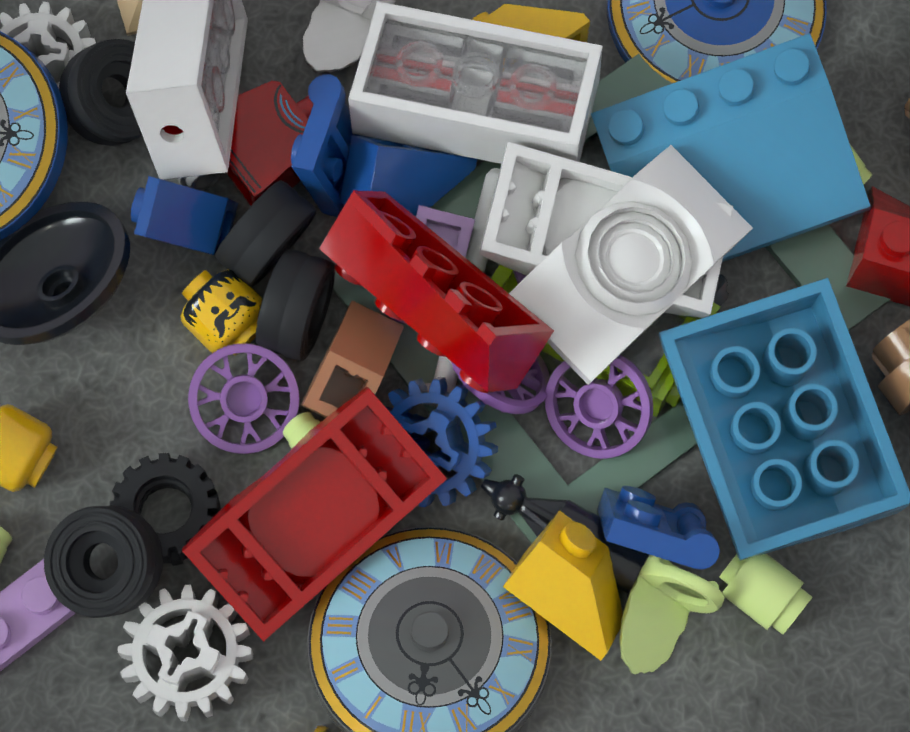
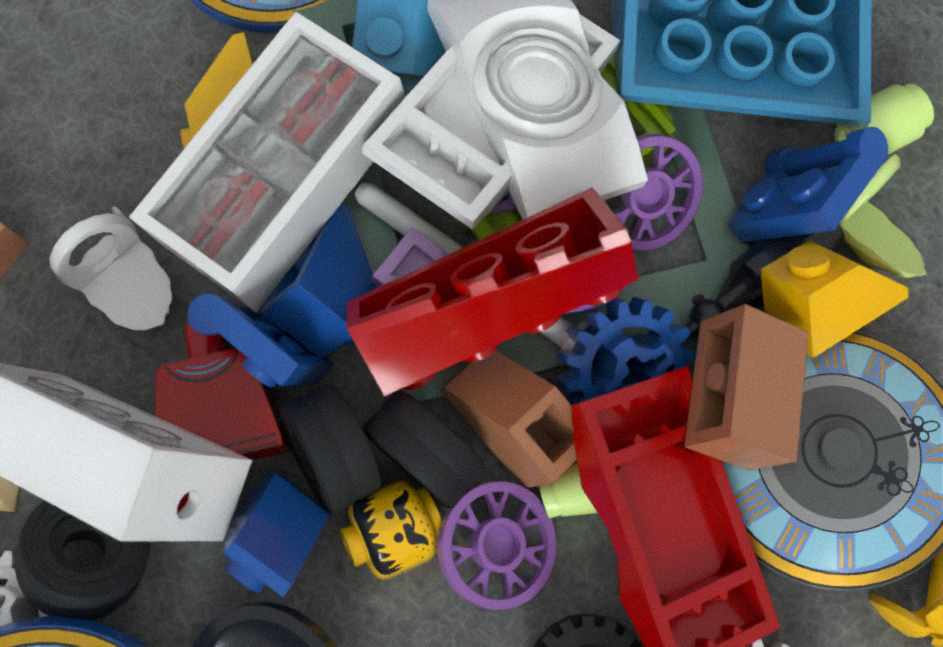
camera: 65 degrees left, 5 degrees up
(445, 532) = (747, 389): none -> nougat brick

